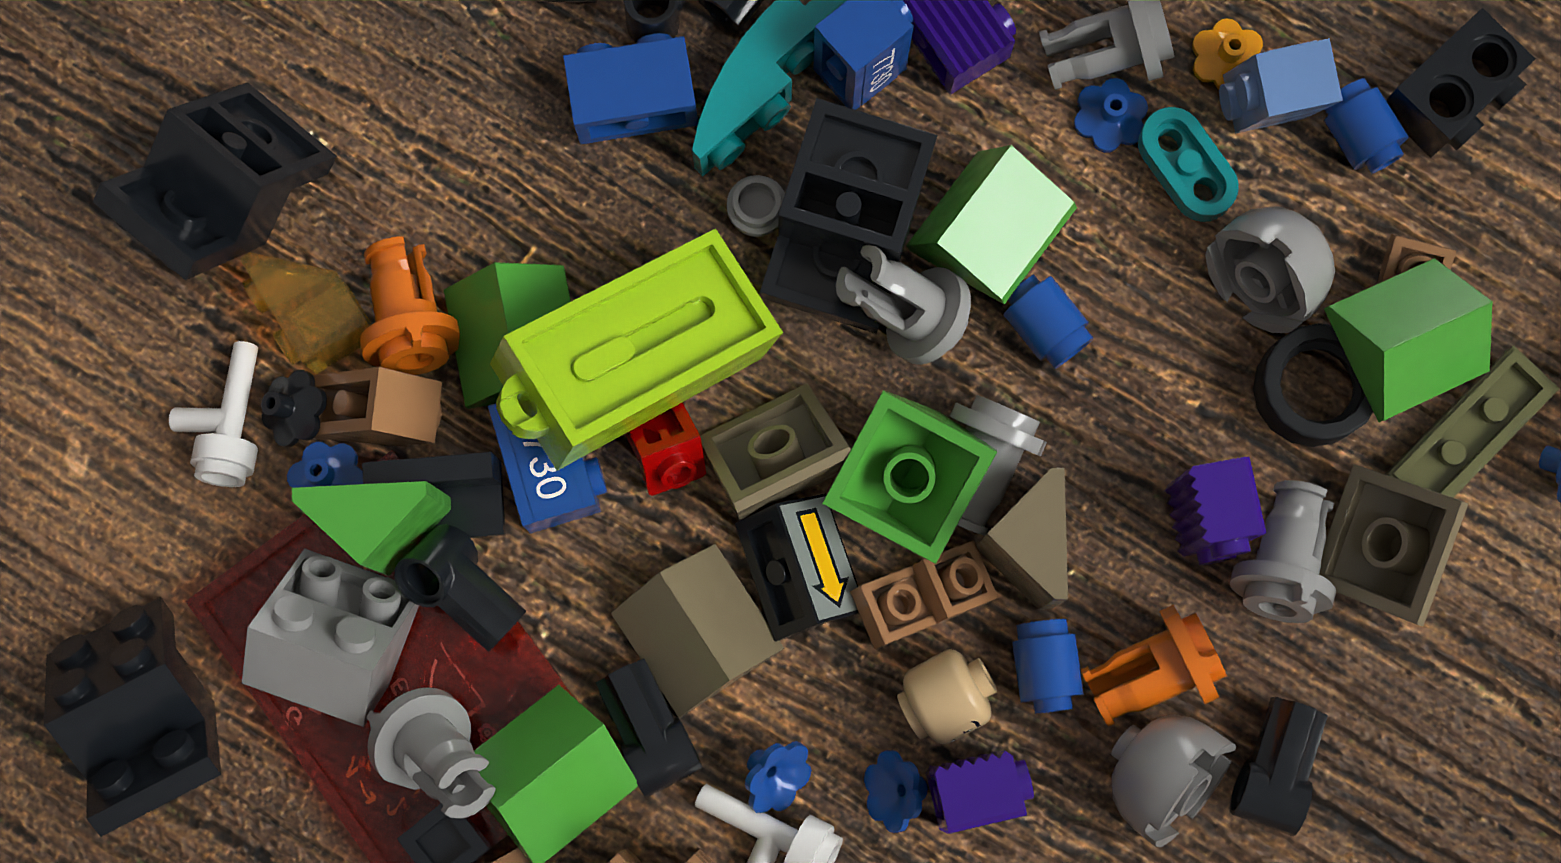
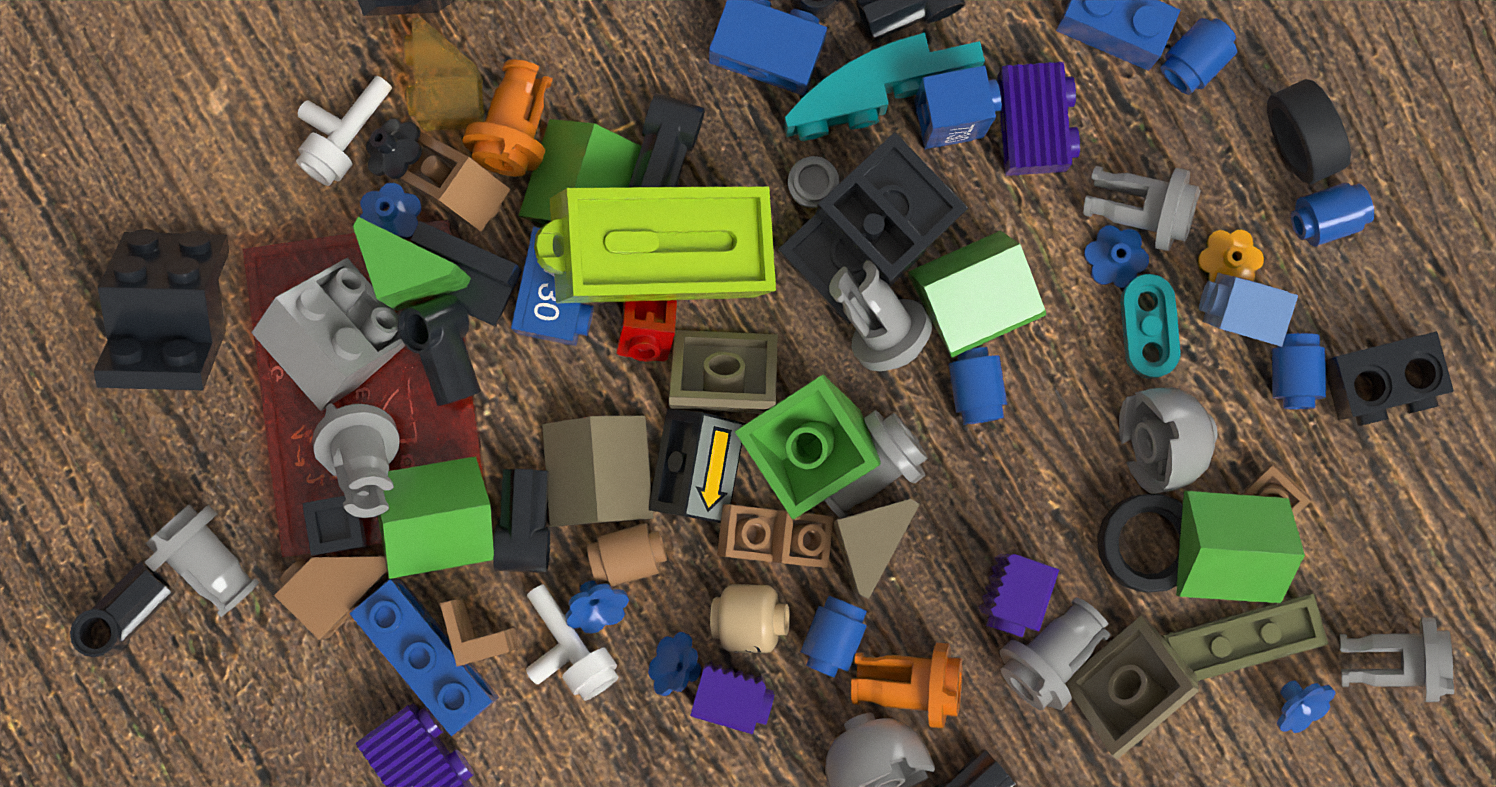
camera: 25 degrees right, 5 degrees up
(579, 237) = (669, 134): none -> black piece
(778, 702) = (626, 555): none -> medium nougat brick

